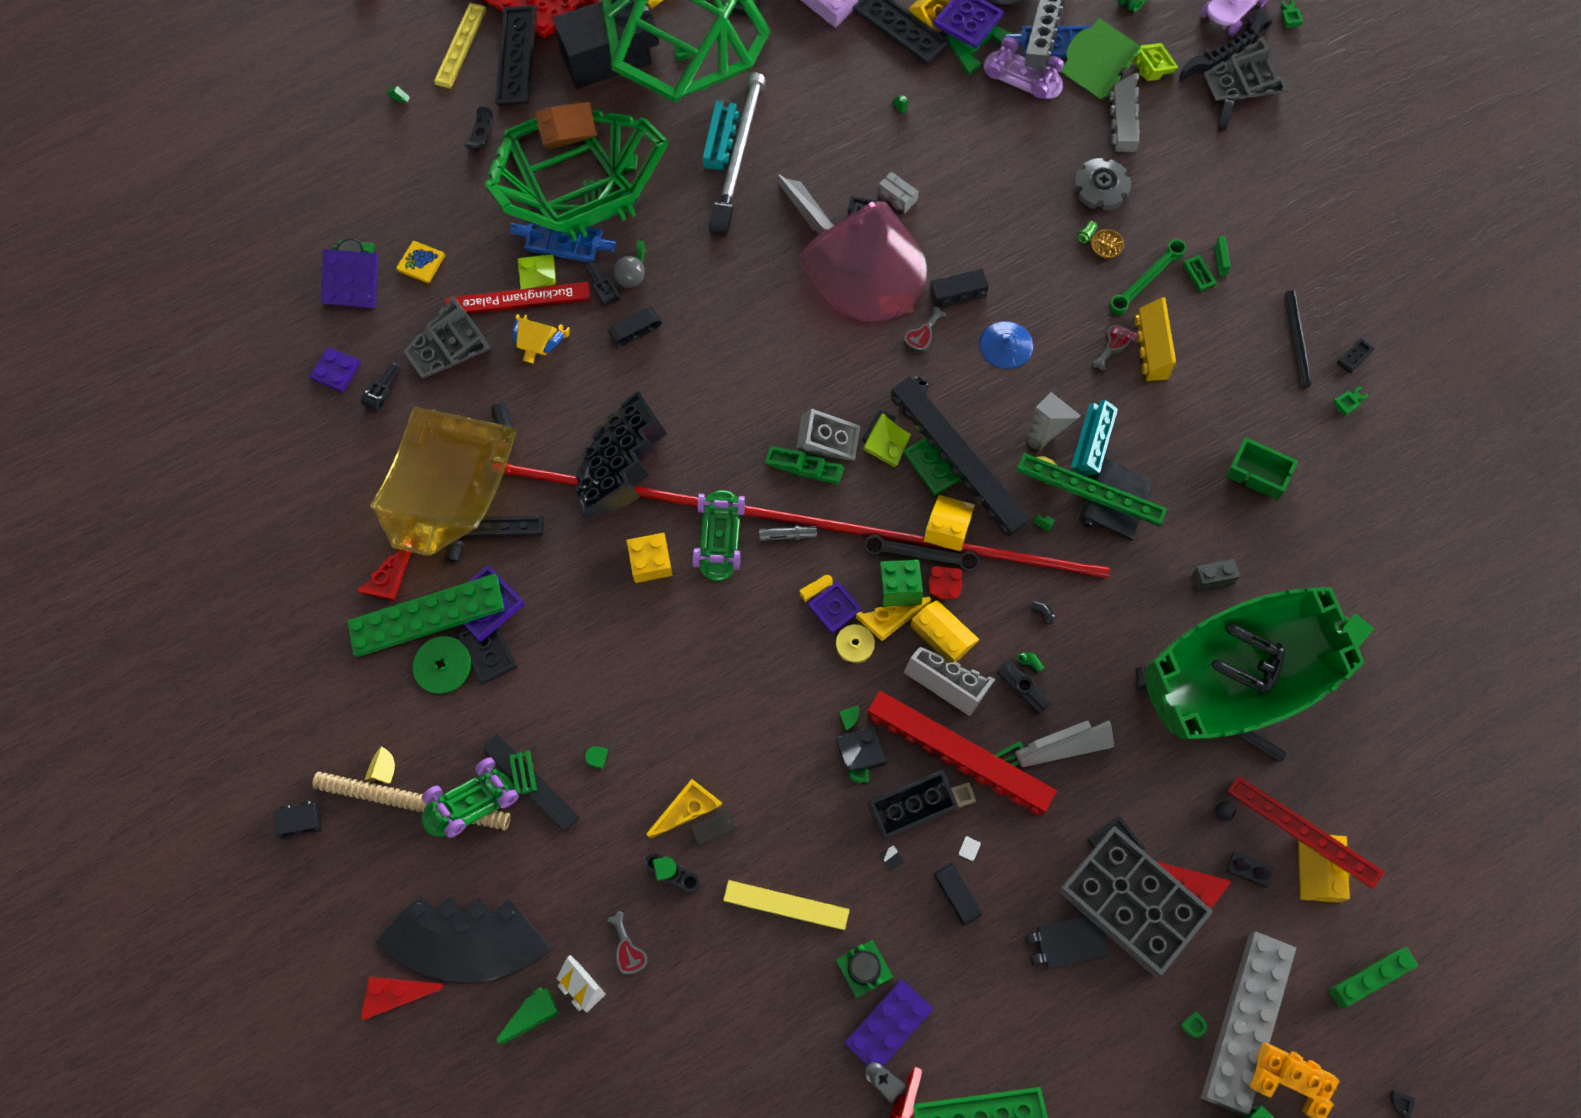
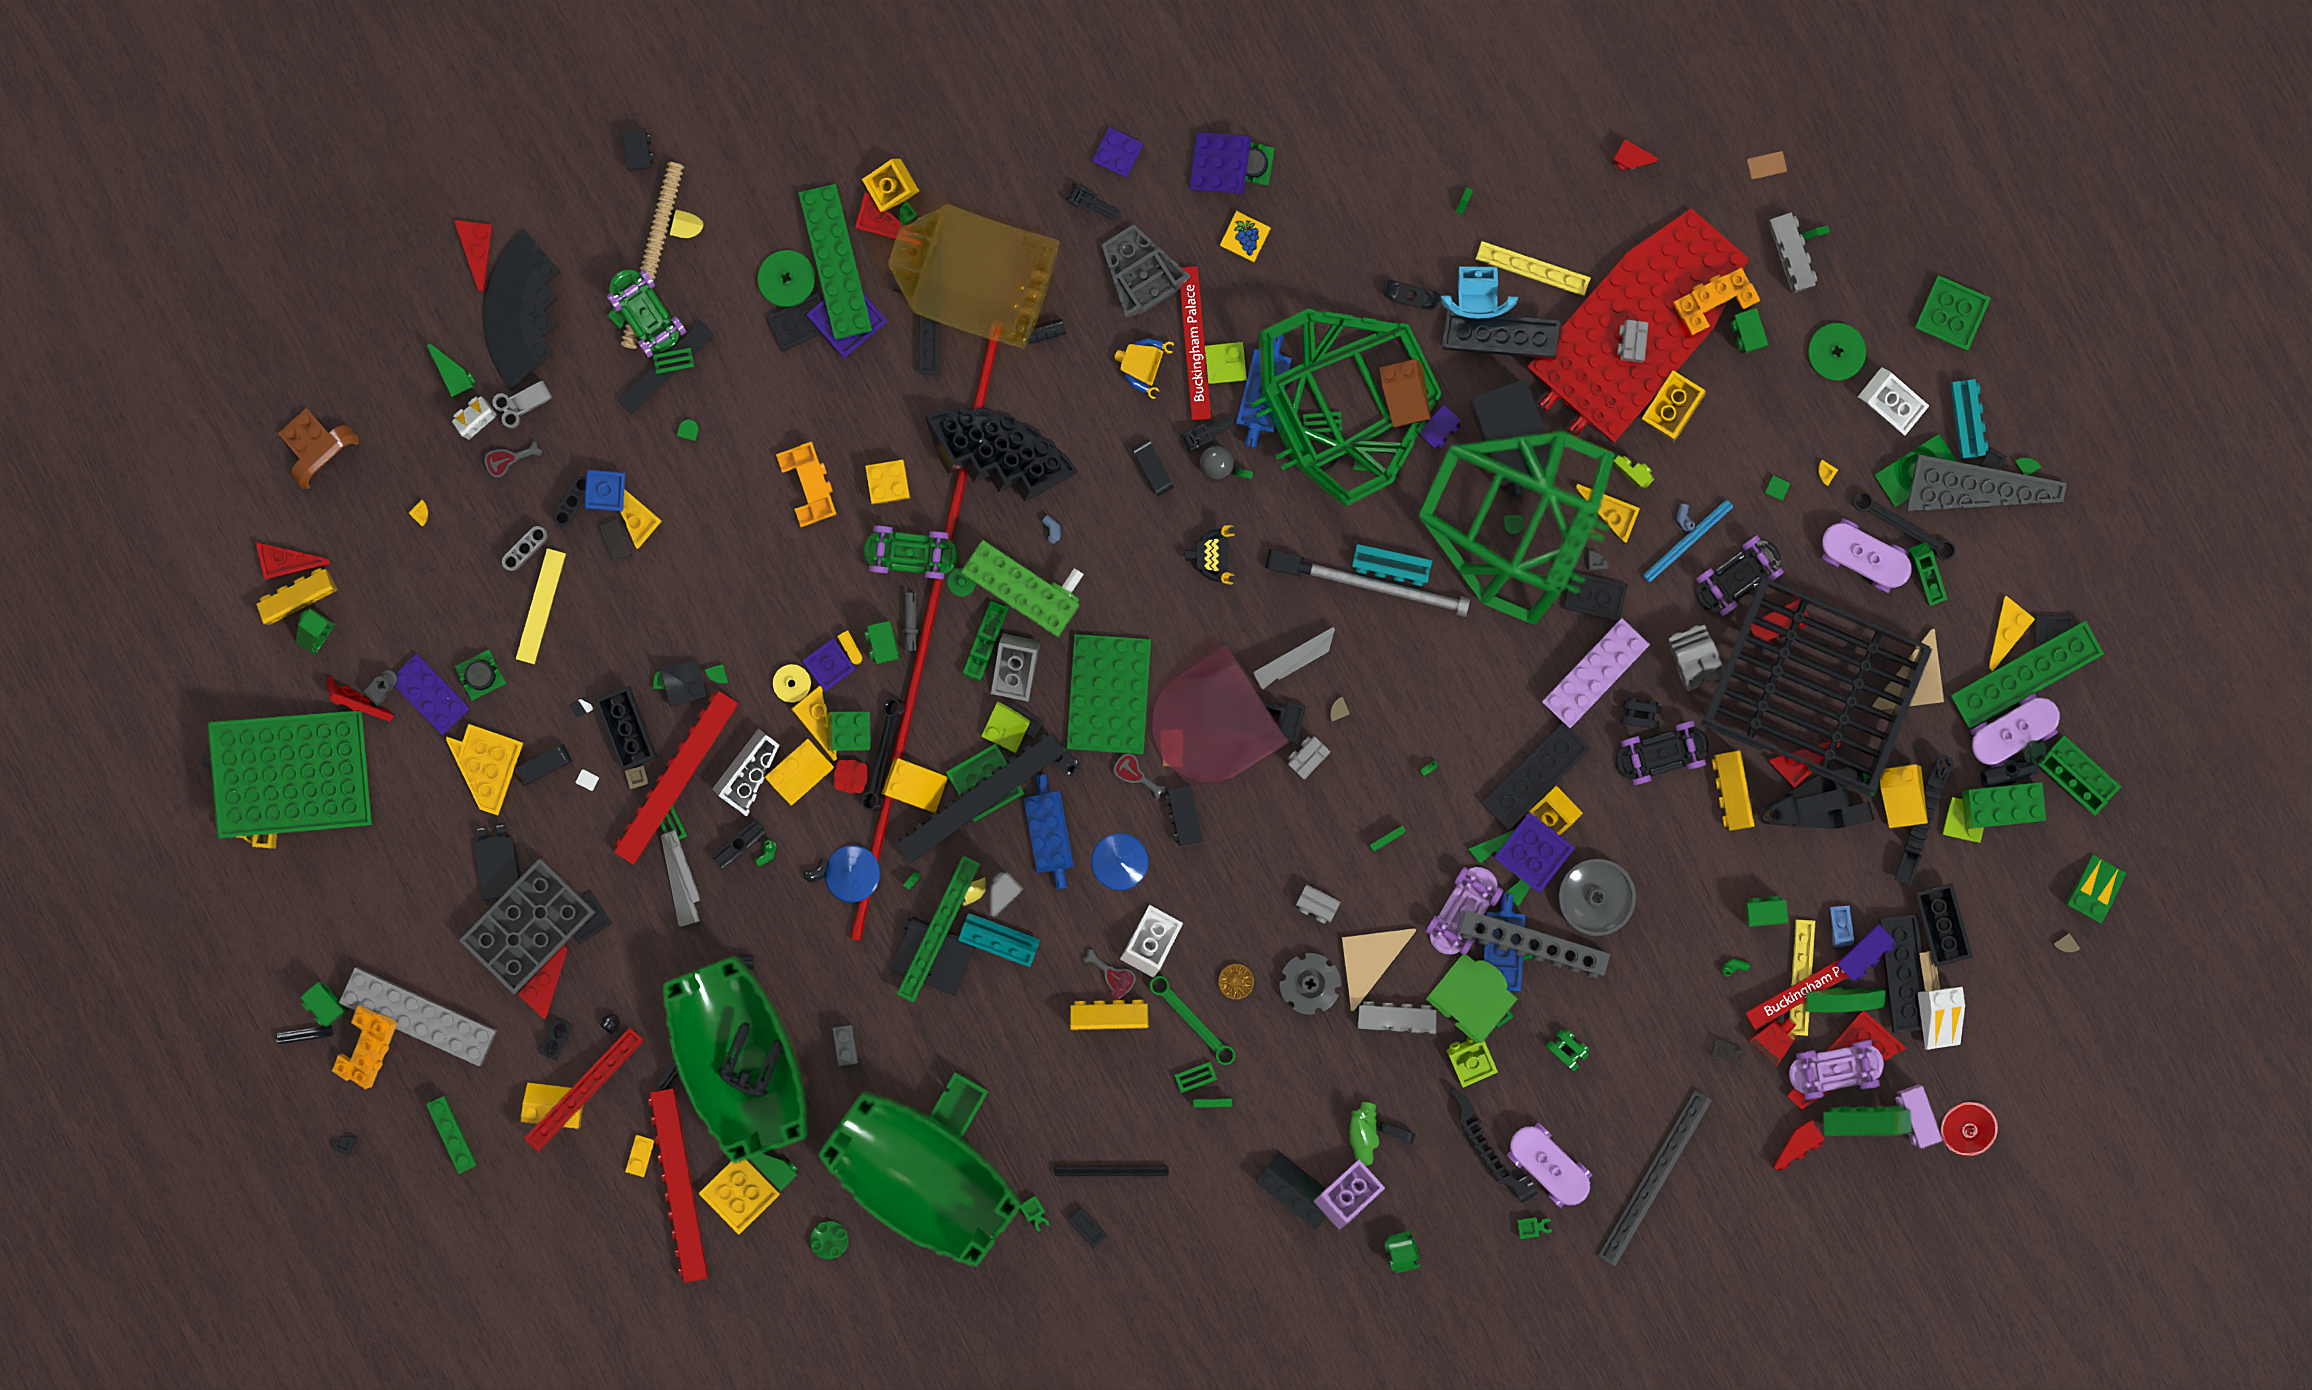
camera: 90 degrees right, 20 degrees up
(350, 566) = (890, 184): none -> yellow slope
(381, 552) = (906, 213): none -> green tile
(474, 835) = (617, 318): none -> green tile
(475, 77) = (1478, 294): none -> medium azure piece
(565, 933) = (522, 402): none -> light grey piece
(598, 100) = (1439, 427): none -> dark purple brick
(649, 628) = (813, 482): none -> light orange bracket
(660, 837) = (604, 490): none -> blue tile
(664, 868) = (574, 494): green tile -> none
(687, 1046) = (420, 513): none -> yellow tile
(692, 409) = (1054, 529): none -> sand blue arm
(715, 274) = (1212, 555): none -> black torso
(720, 914) = (515, 550): none -> light grey beam
(749, 489) = (959, 583): none -> green piece
(752, 425) = (1042, 603): none -> bright green piece
(810, 552) = (883, 643): none -> green brick
(848, 357) = (1108, 694): none -> green plate
(853, 173) = (1339, 709): none -> dark tan tile
(962, 957) = (486, 764): none -> yellow wing
(965, 130) = (1387, 838): none -> green tile
(986, 400) = (1048, 832): none -> blue plate
(1029, 180) = (1318, 904): none -> light grey brick
(1042, 577) = (852, 873): none -> blue hat
(1074, 144) = (1368, 958): none -> tan tile
(1080, 311) = (1151, 941): none -> white slope
(1085, 234) = (1250, 961): bright green pin -> none
(1194, 1025) = (418, 969): green tile -> none
(1232, 137) = (1363, 1133): none -> bright green animal
(1245, 75) = (1445, 1162): dark grey wedge -> none
(1290, 140) = (1349, 1194): none -> lavender brick
(1291, 188) = (1293, 1189): none -> black slope
(1332, 101) = (1403, 1252): none -> green brick
(1344, 486) = (920, 1178): none -> green windscreen
(1359, 775) = (640, 1156): none -> yellow plate
(1383, 733) = (679, 1185): none -> red brick
(1385, 673) = (739, 1194): none -> yellow plate
(1412, 585) = (829, 1240): none -> green dish

